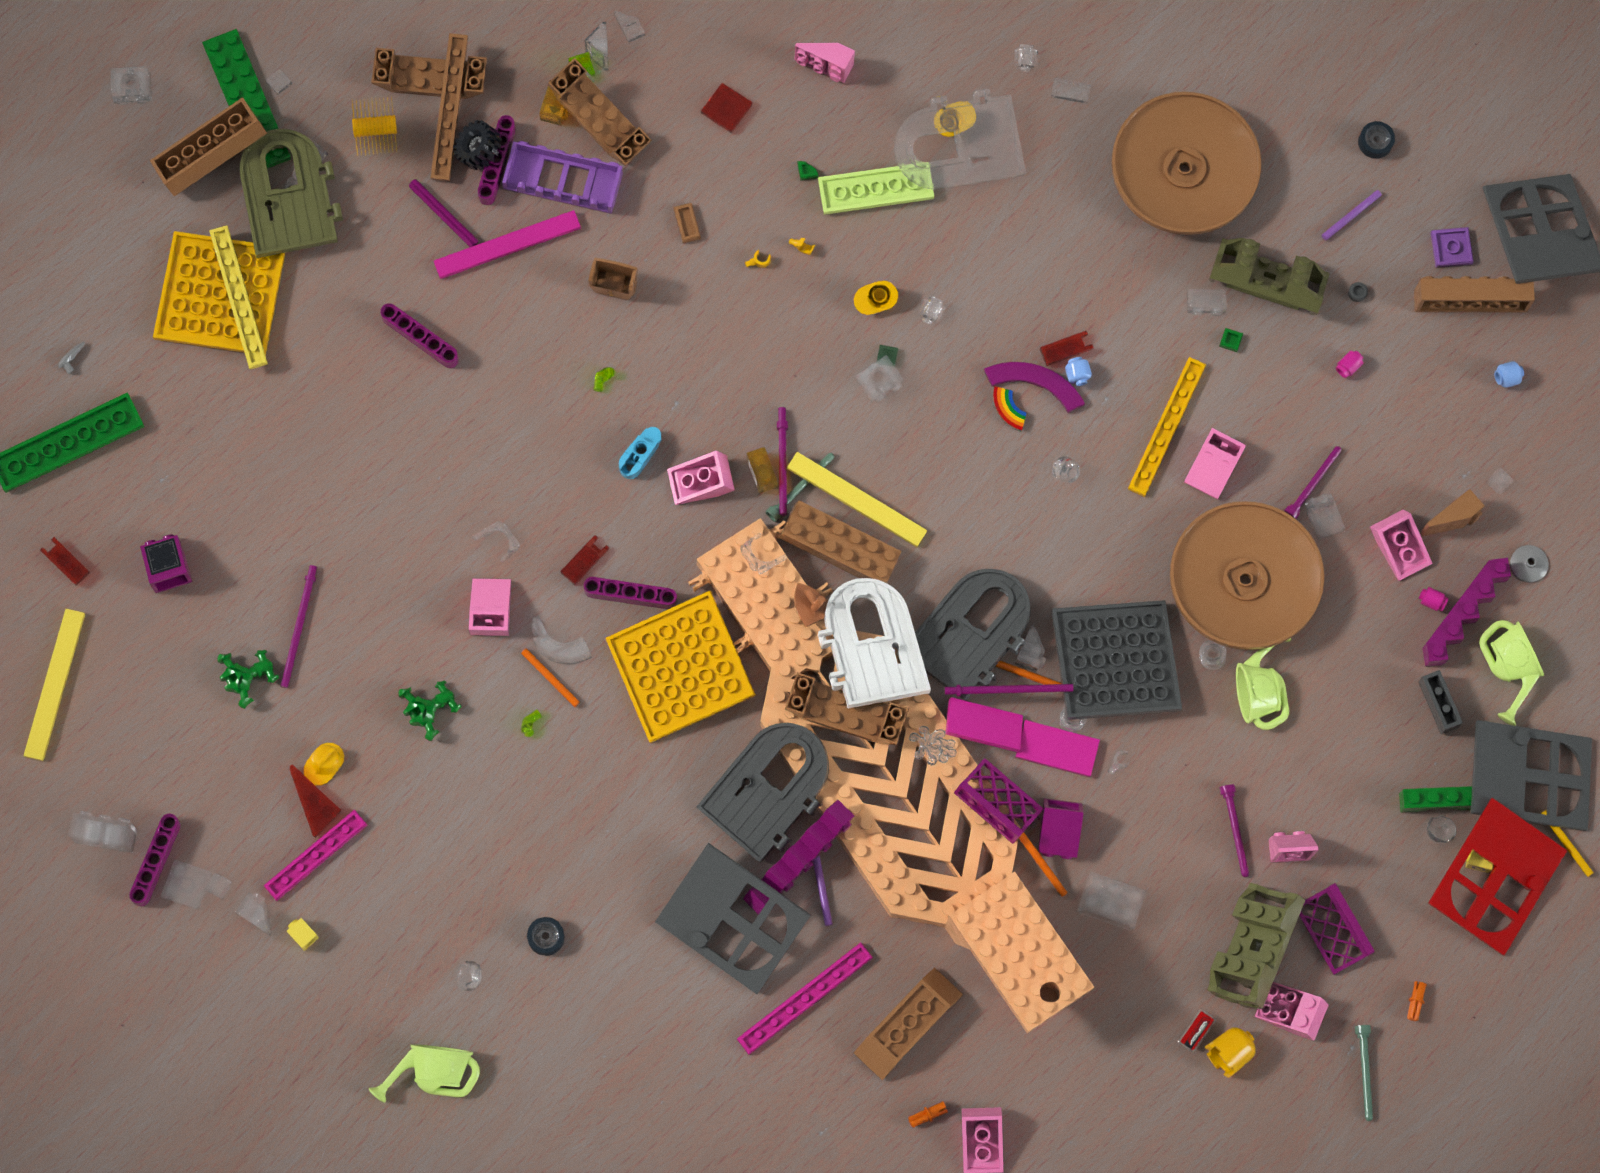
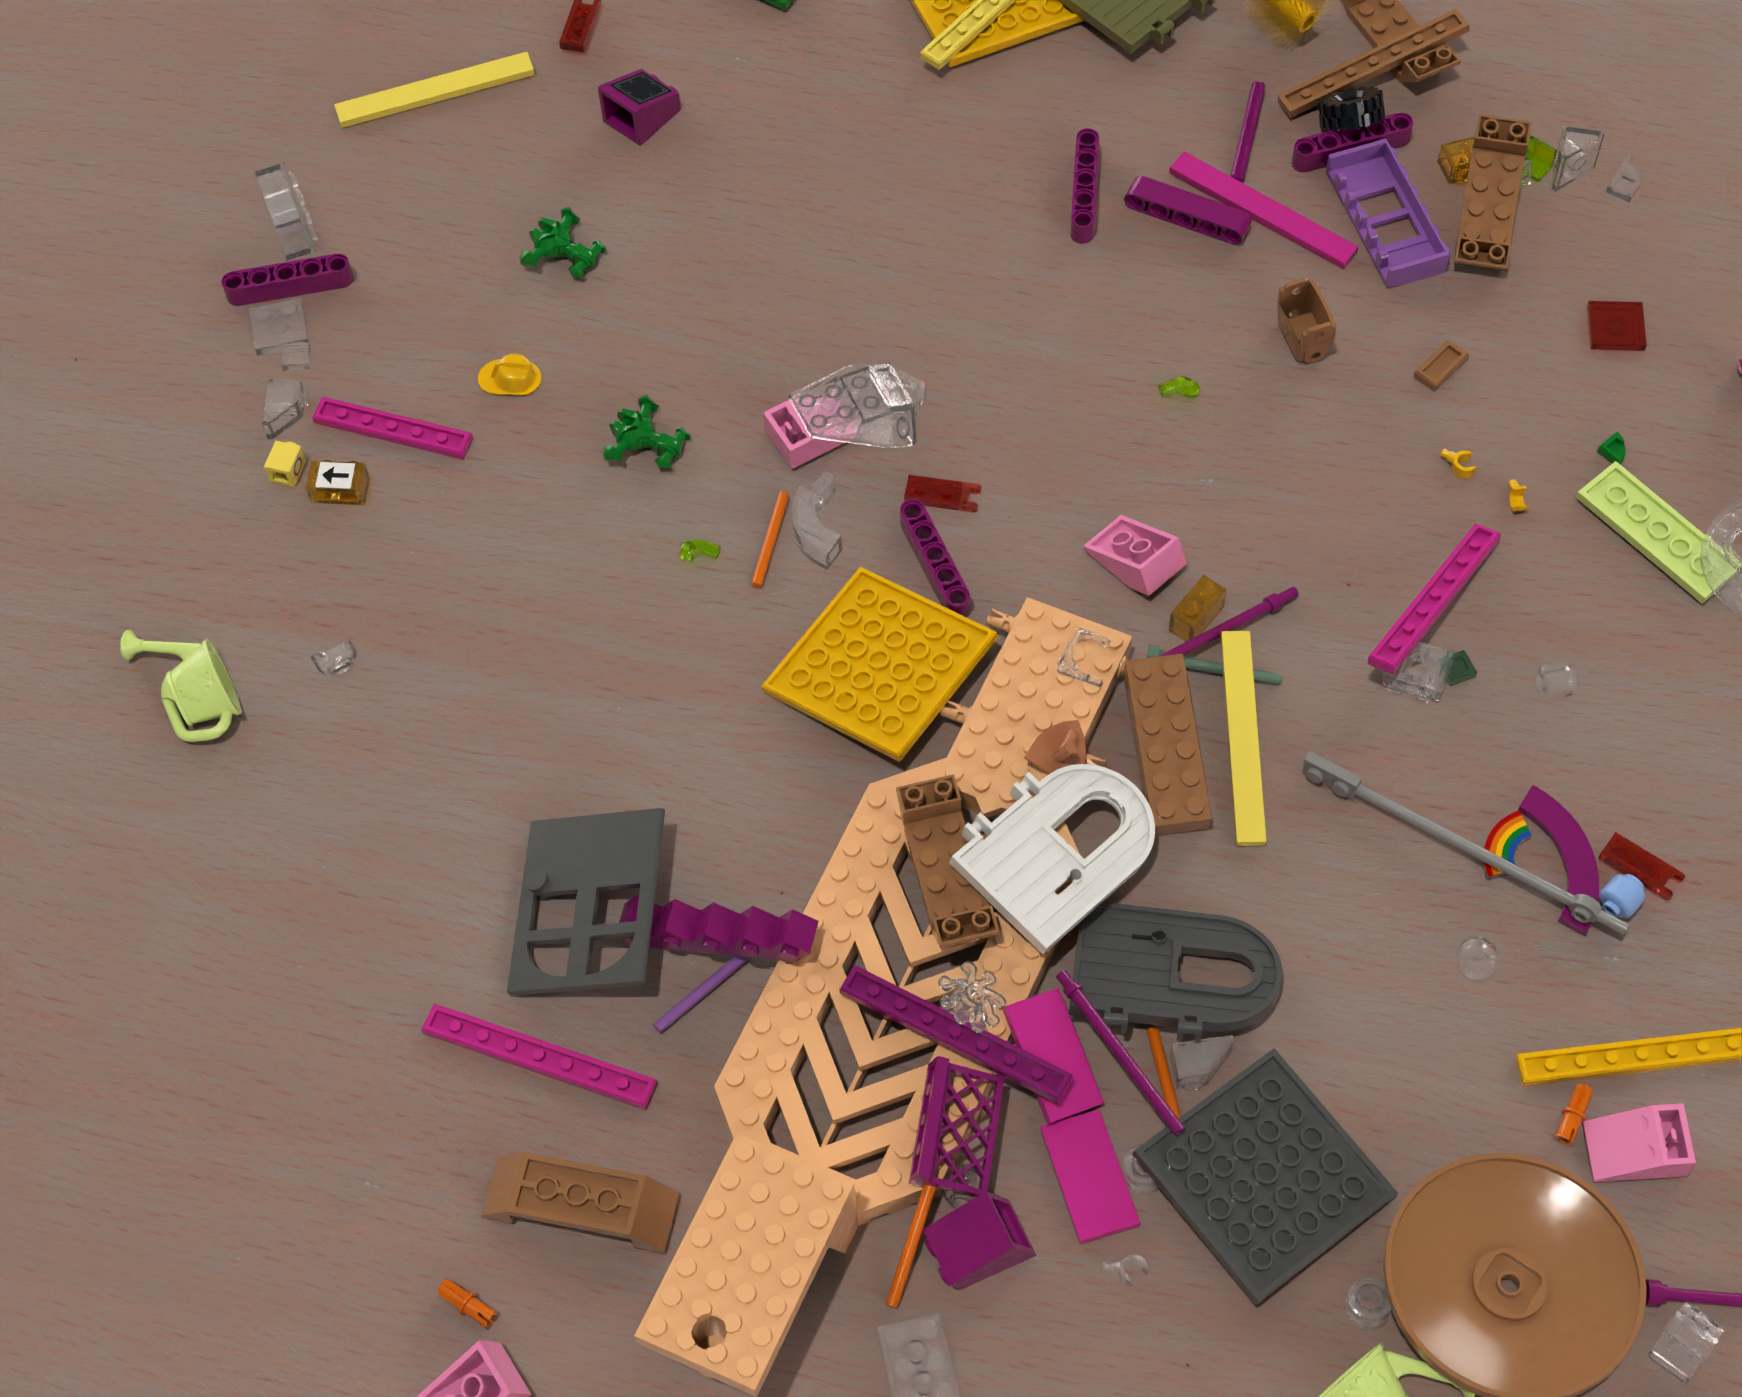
camera: 65 degrees right, 15 degrees down
(309, 578) = (719, 245): magenta bar -> none
(317, 806) = (453, 393): clear red wing -> none
(338, 909) = (337, 482): none -> clear yellow brick
(479, 288) = (1187, 210): none -> magenta beam
(496, 571) = (858, 406): none -> clear wedge
(538, 929) = (445, 701): wheel -> none
(650, 441) = (1101, 474): medium azure piece -> none
(760, 808) = (756, 853): dark grey door -> none
(843, 338) = (1433, 599): none -> dark pink tile
(875, 297) = (1518, 604): yellow piece -> none
(921, 466) = (1349, 785): none -> light grey bar
(940, 771) = (943, 1029): none -> magenta tile
(1178, 483) = (1573, 1115): none -> orange axle

